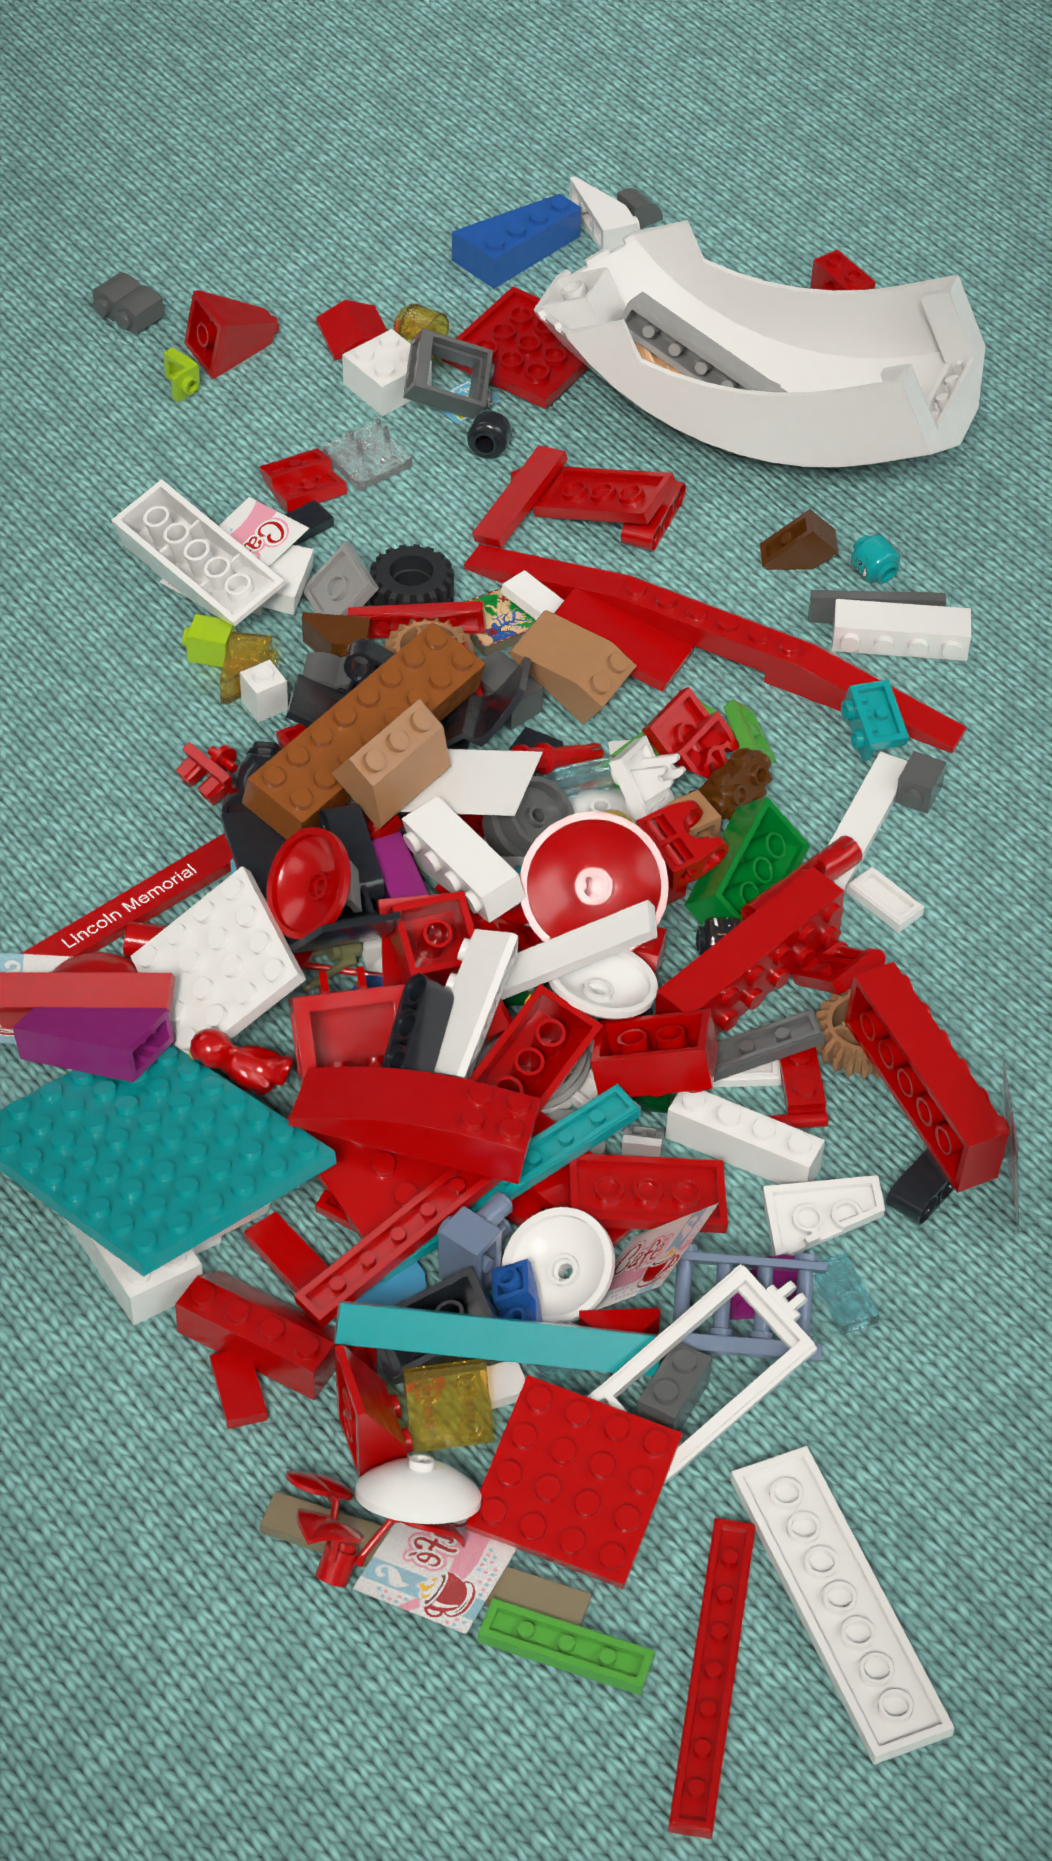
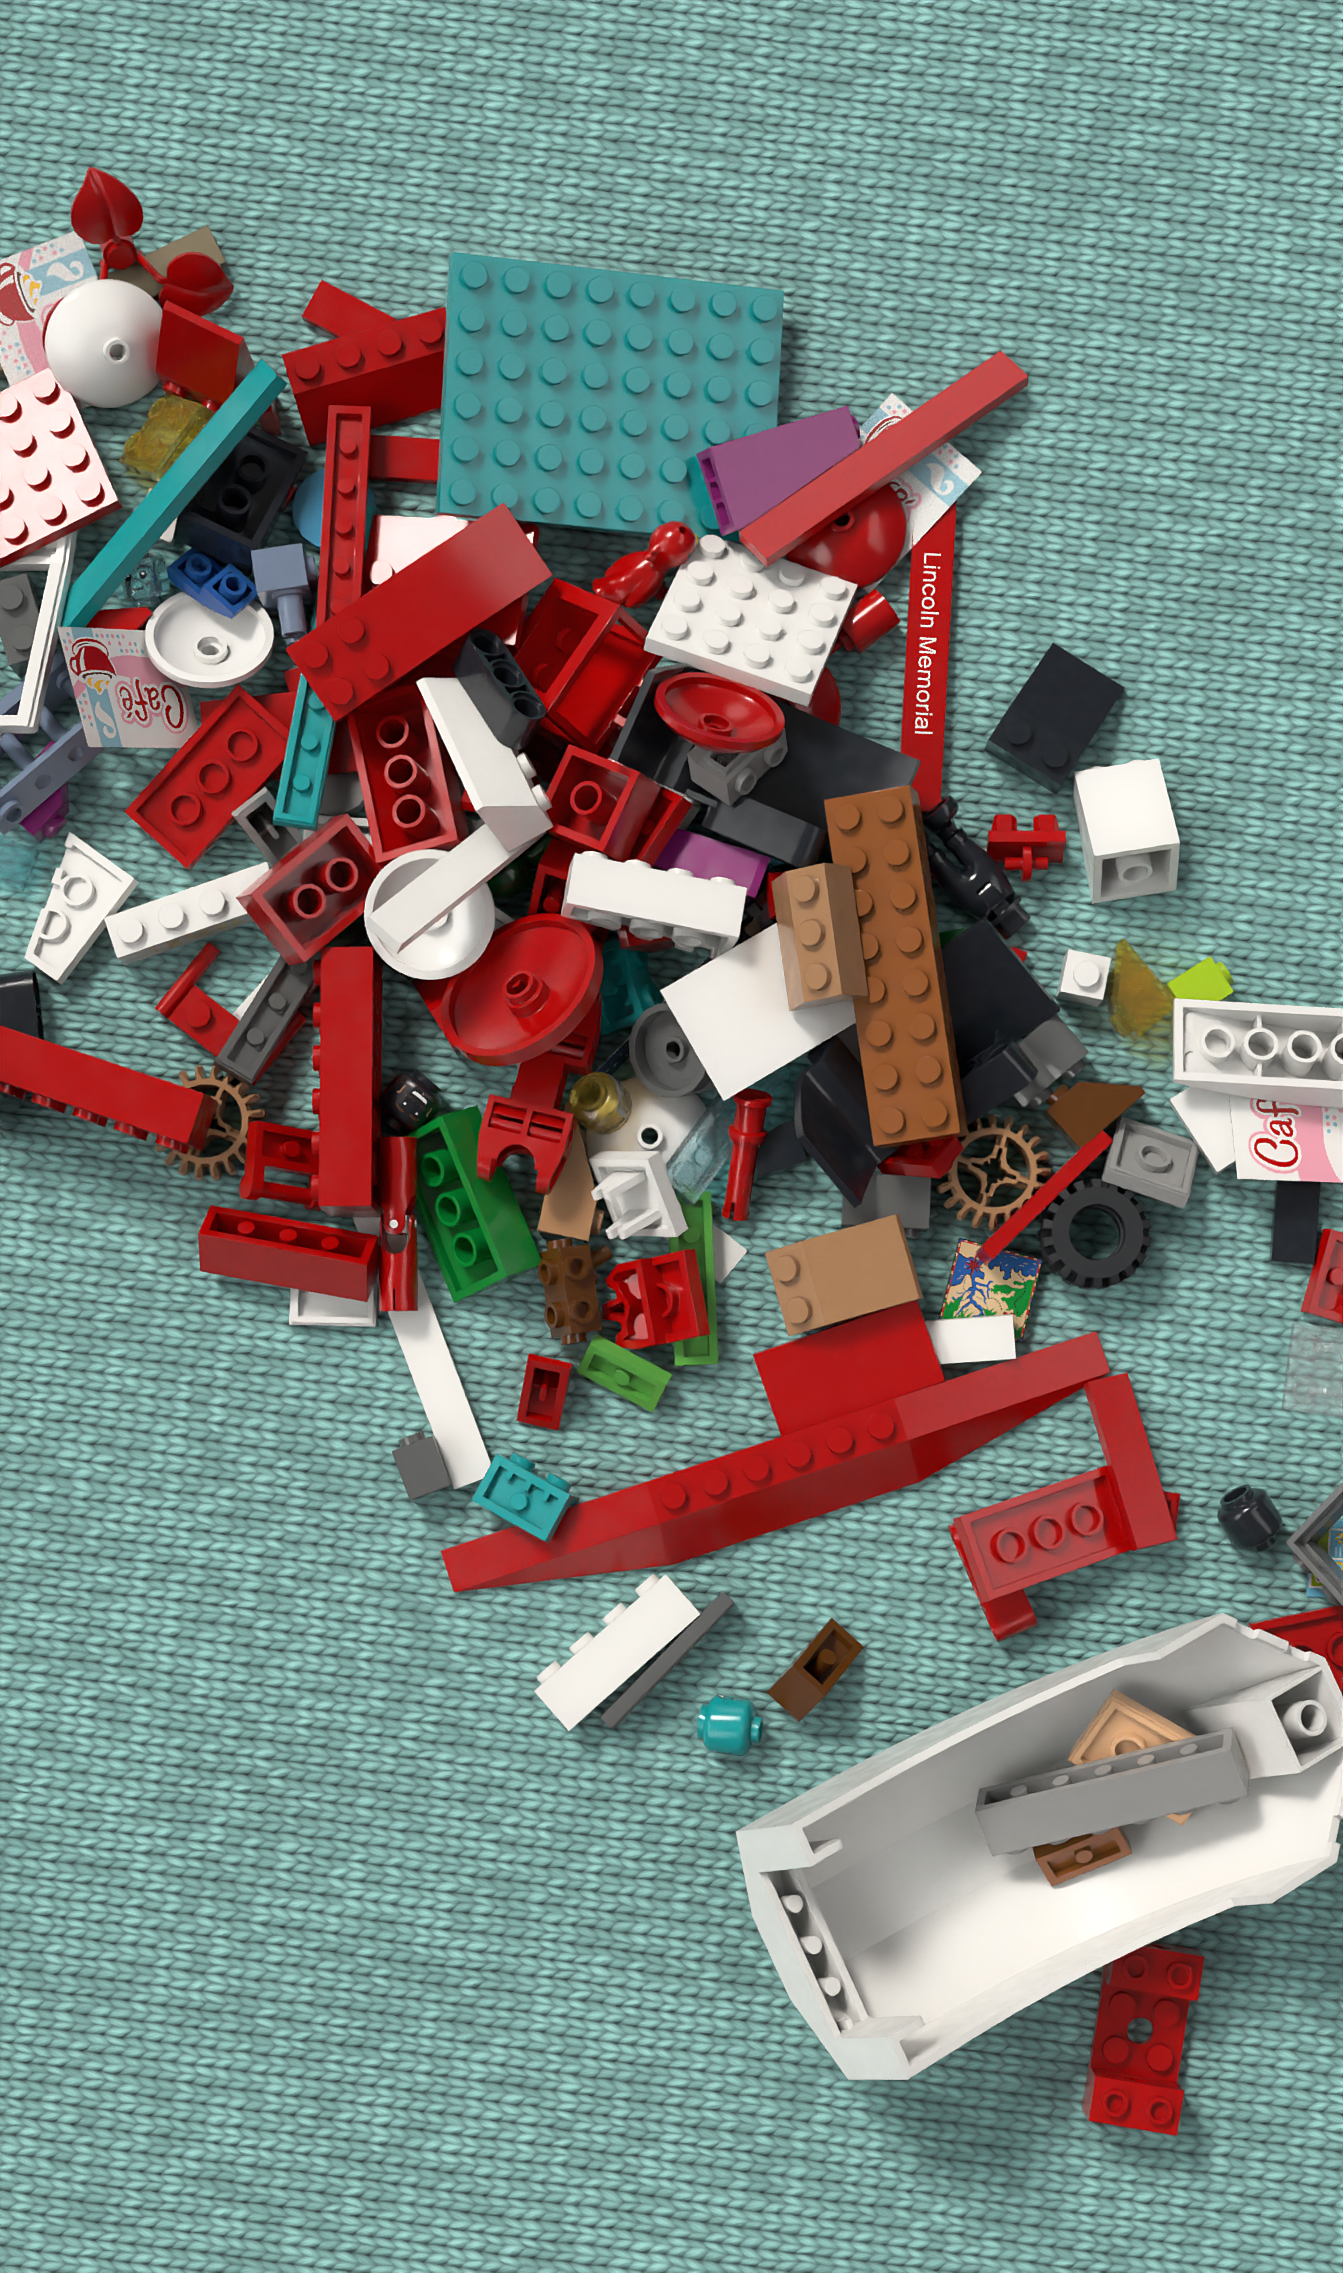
camera: 140 degrees right, 35 degrees up
(112, 813) = (1053, 718): none -> black slope
(145, 729) = (1126, 830): none -> white slope
(800, 763) = (544, 1391): none -> red slope
(888, 922) = (288, 1253): none -> red brick

